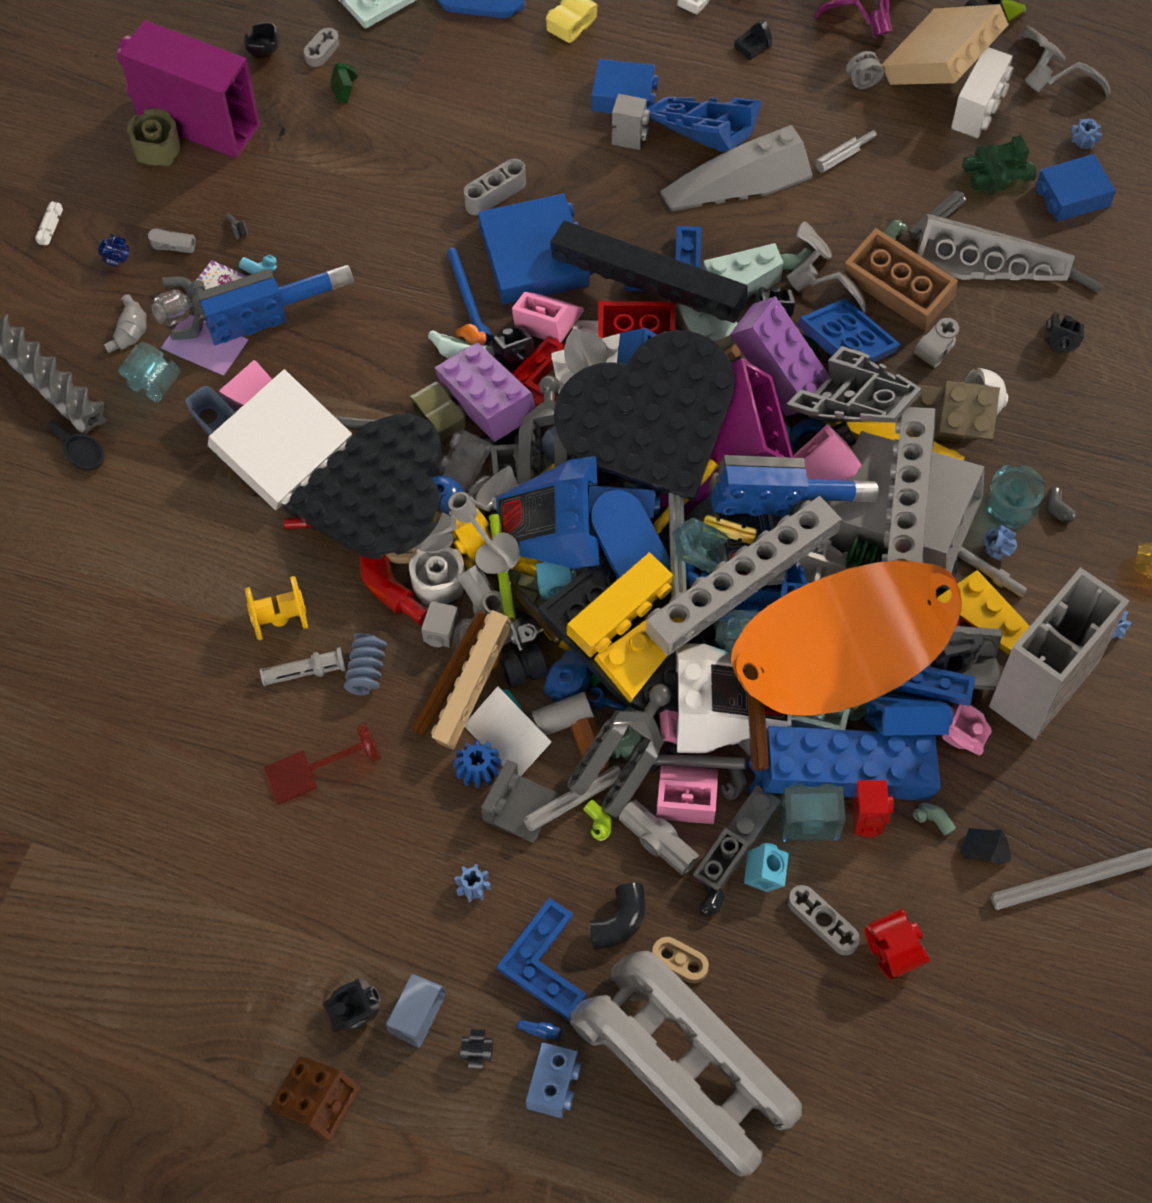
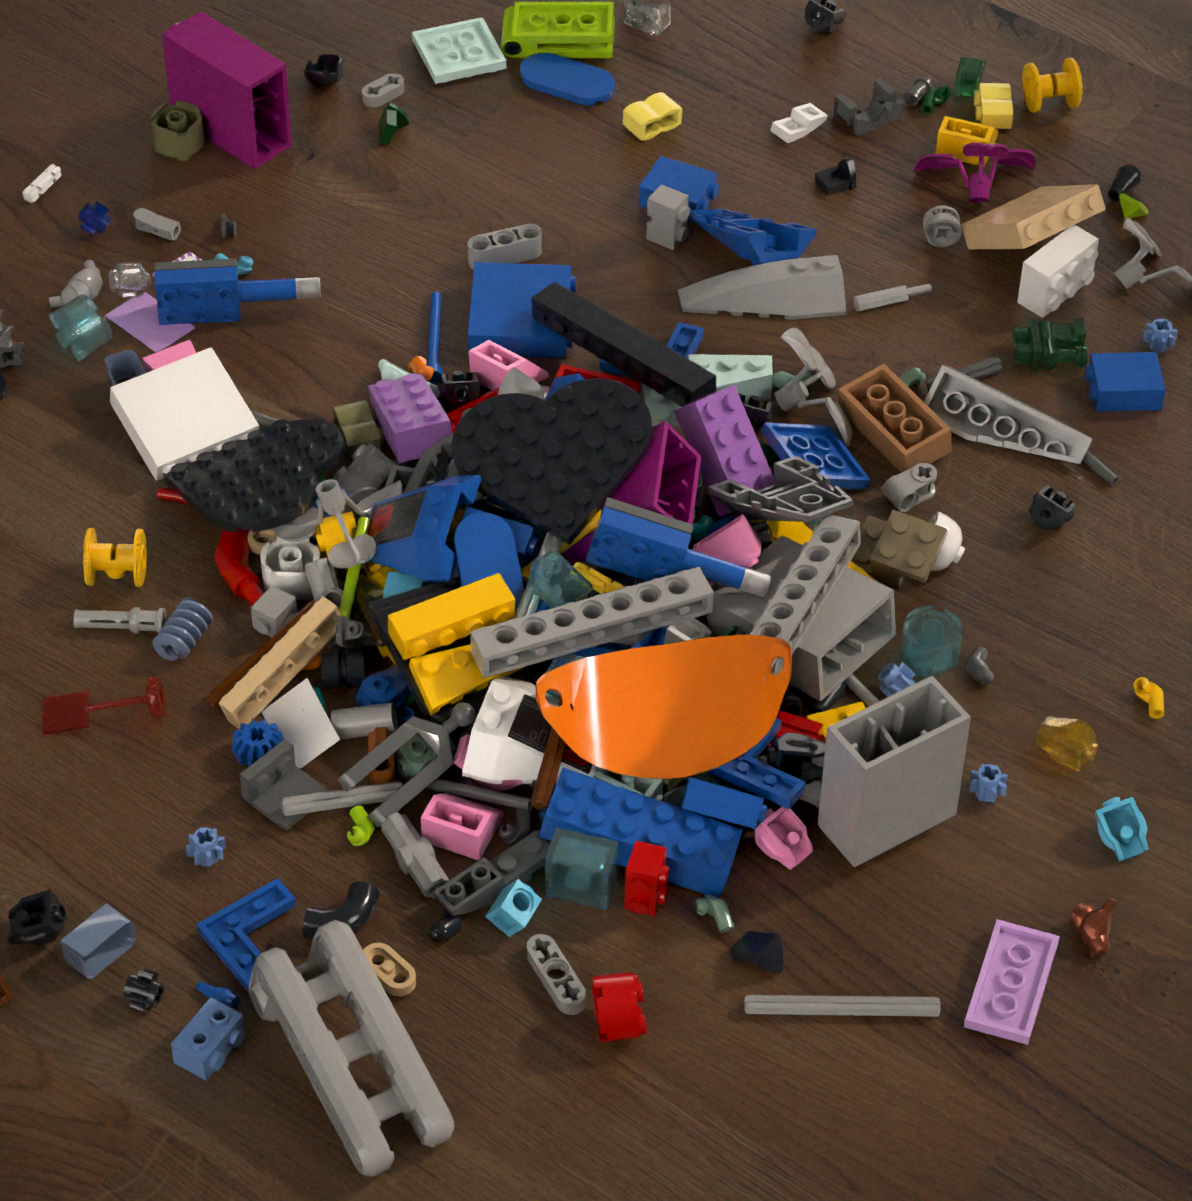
camera: 15 degrees right, 15 degrees down
(192, 289) = (150, 300): dark grey piece -> none

